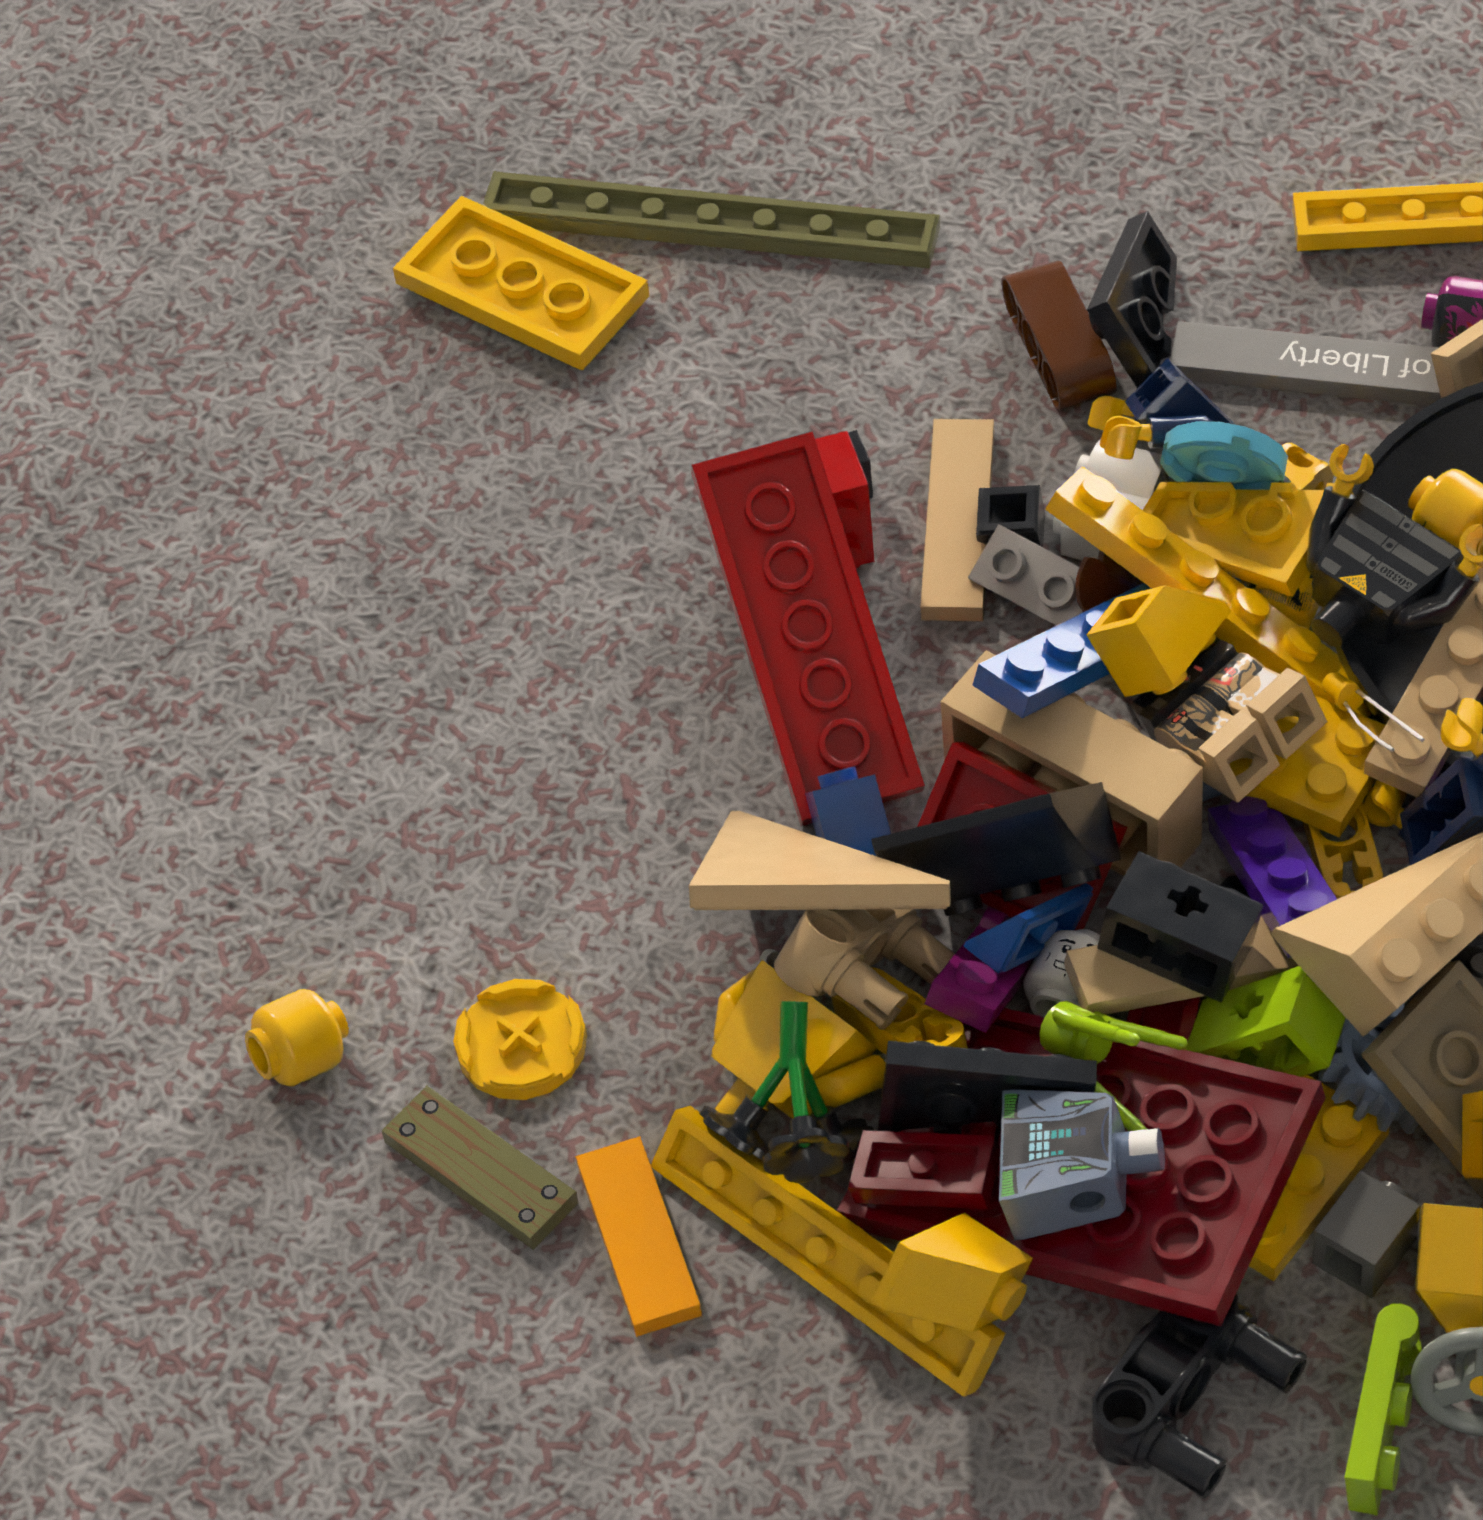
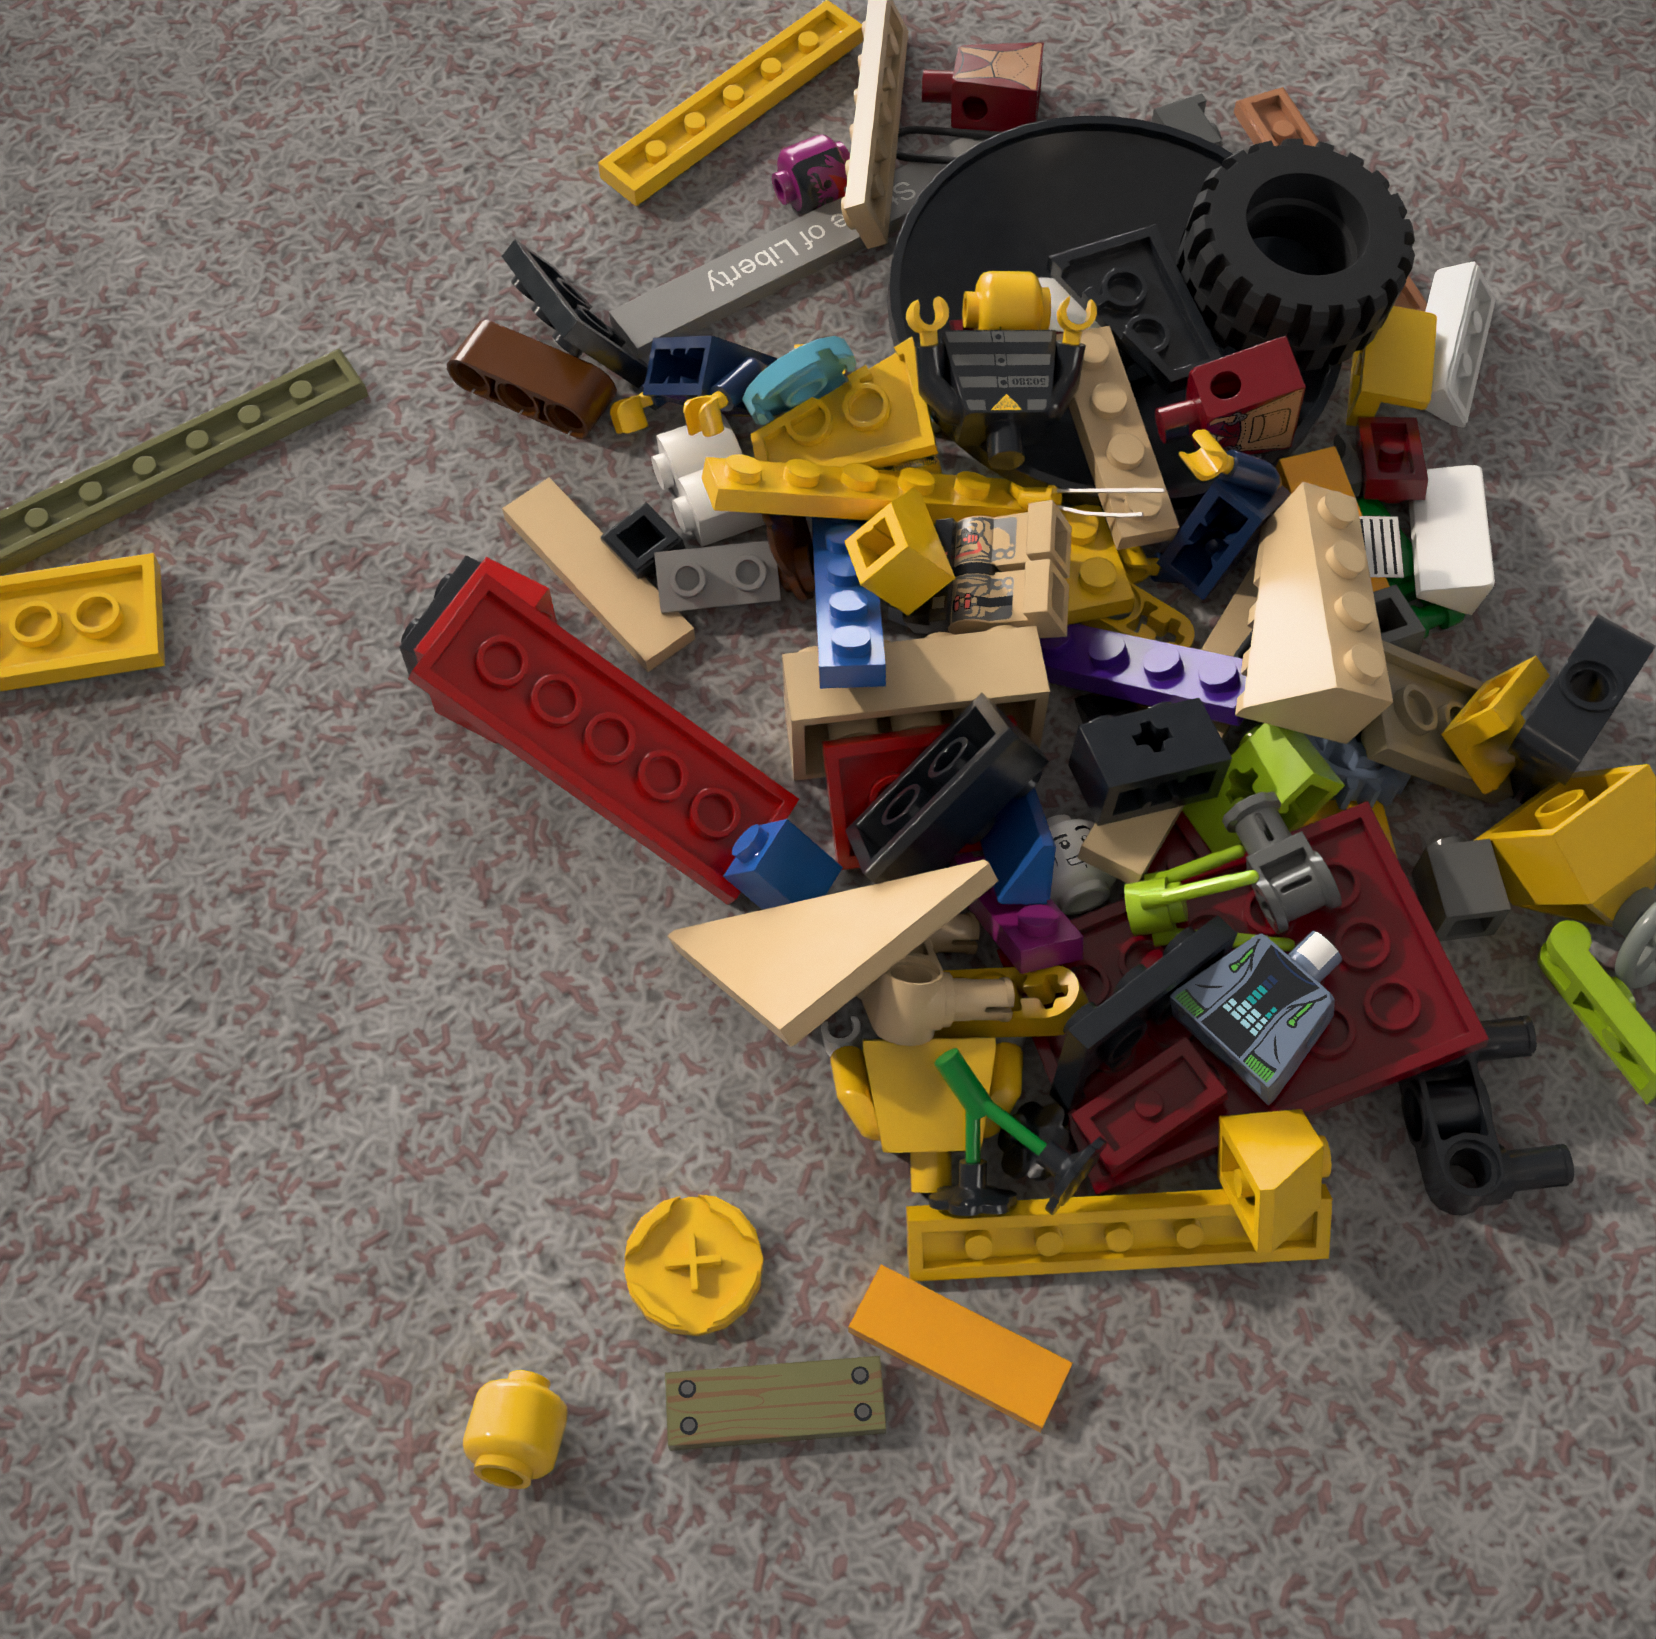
camera: 50 degrees left, 10 degrees up
(1194, 1075) = (1291, 874): none -> dark grey connector

